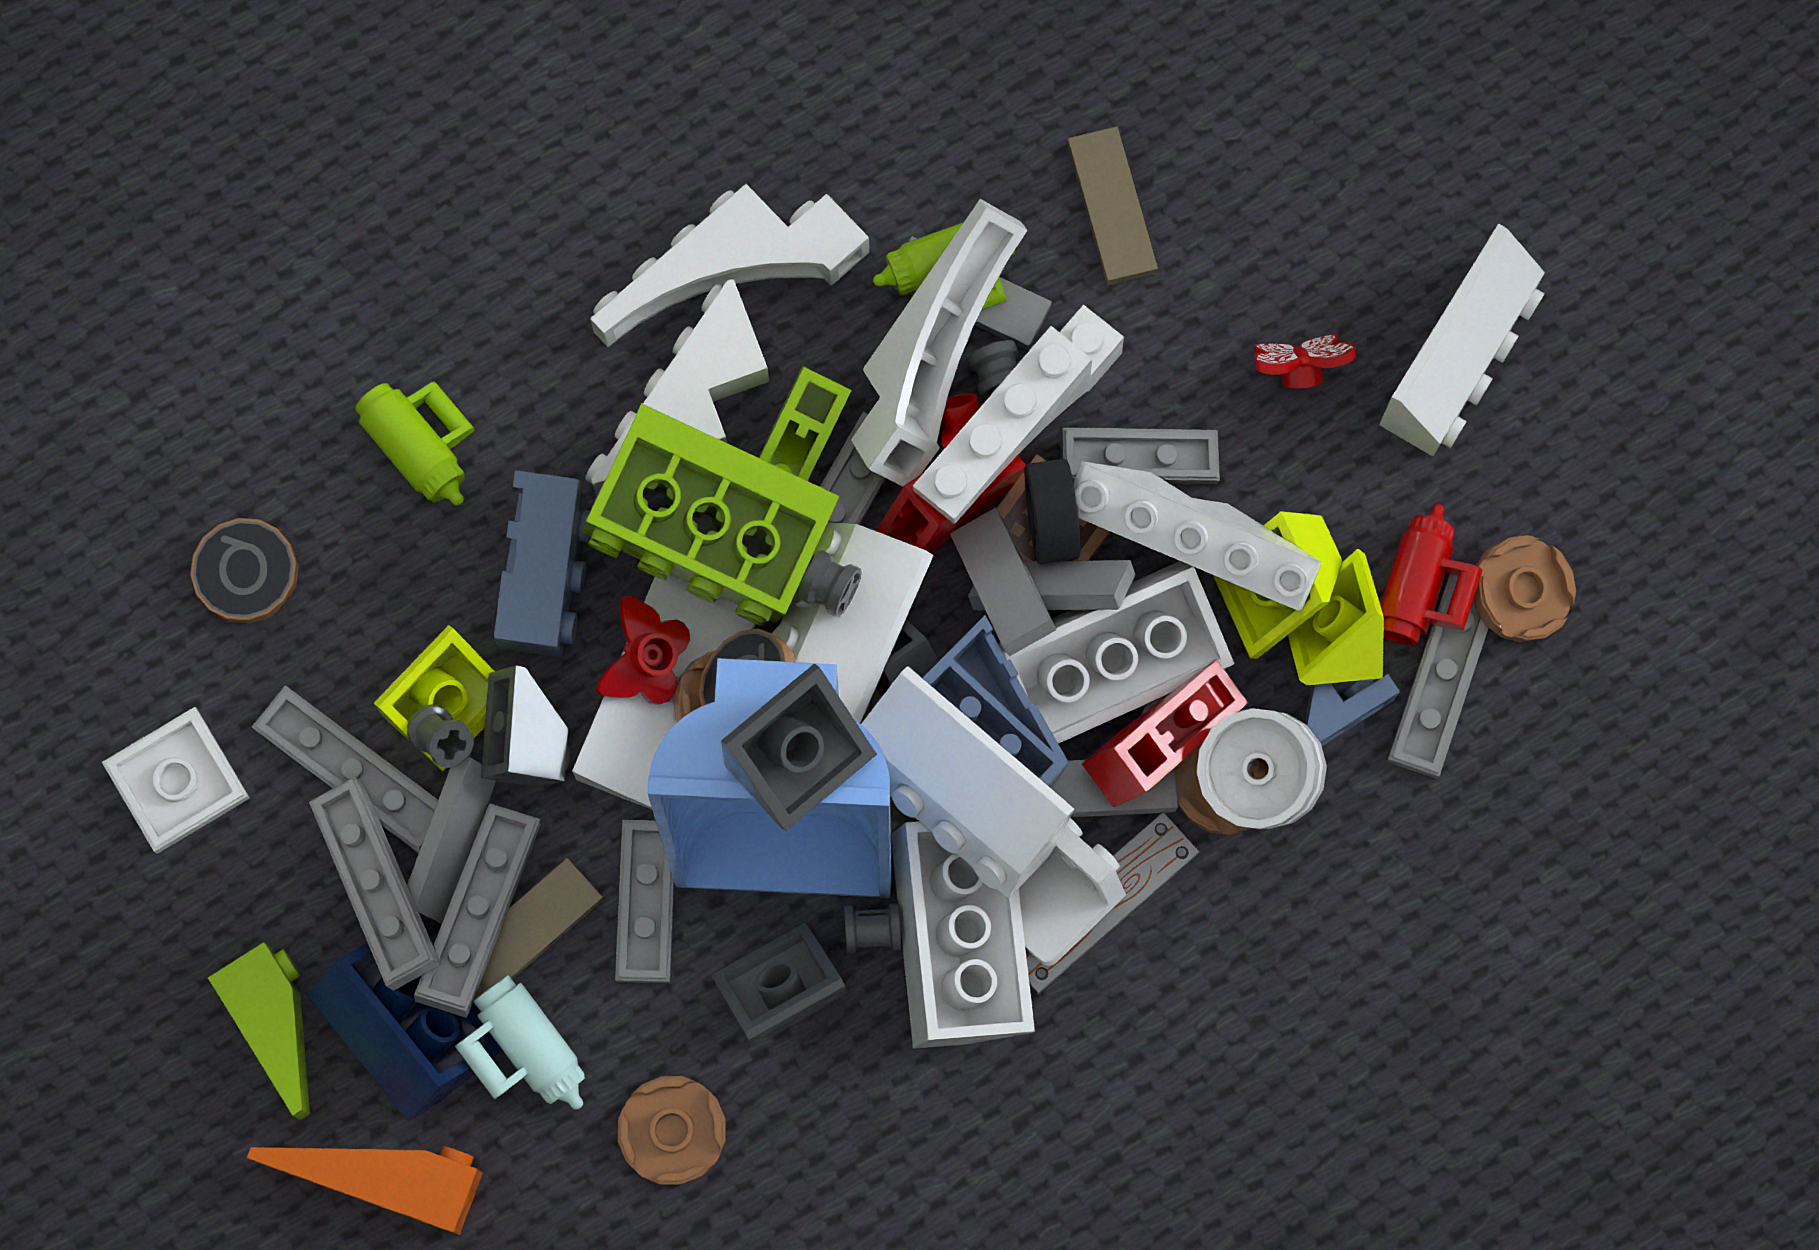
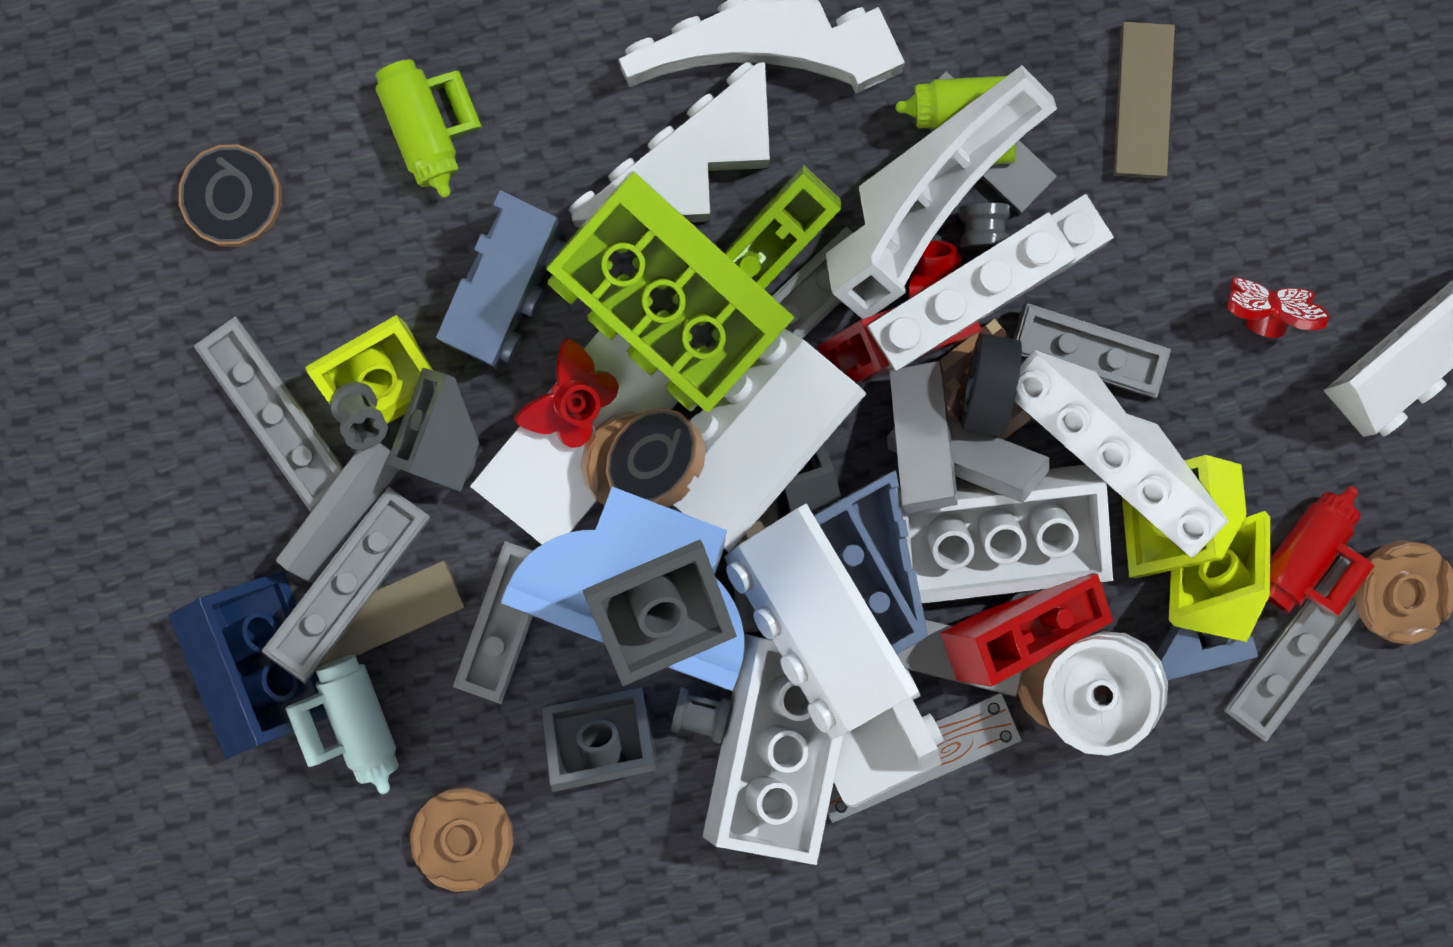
camera: 20 degrees right, 10 degrees up
(175, 780) = (111, 372): white tile -> none
(269, 1015) = (129, 620): lime slope -> none
(374, 883) = (258, 533): light grey tile -> none
(404, 1181) = (204, 811): orange slope -> none
(829, 583) = (759, 393): dark grey wheel -> none

